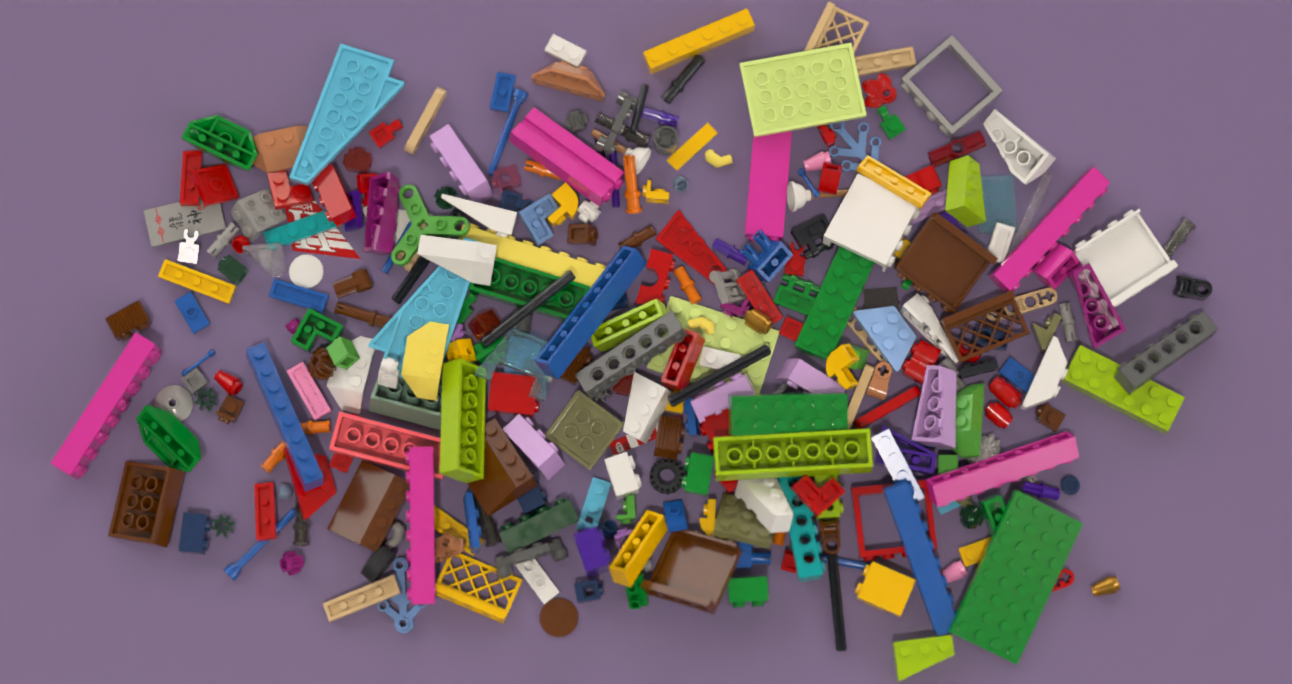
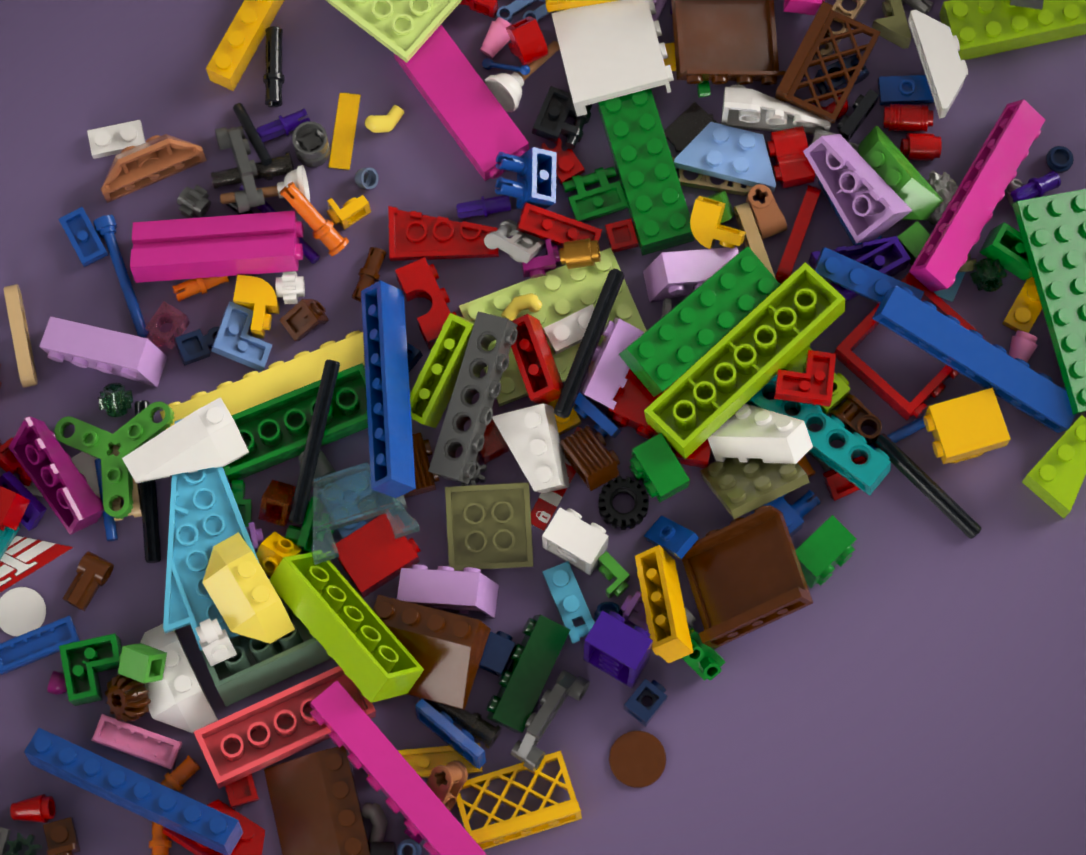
camera: 40 degrees left, 5 degrees down
(372, 318) = (143, 600): reddish brown pin -> none
(495, 218) = (186, 376): white wedge -> none
(538, 580) = (578, 736): white plate -> none
(687, 285) = (468, 279): orange pin -> none
(707, 524) = (715, 513): yellow brick -> none
(1049, 417) = (975, 106): reddish brown bracket -> none

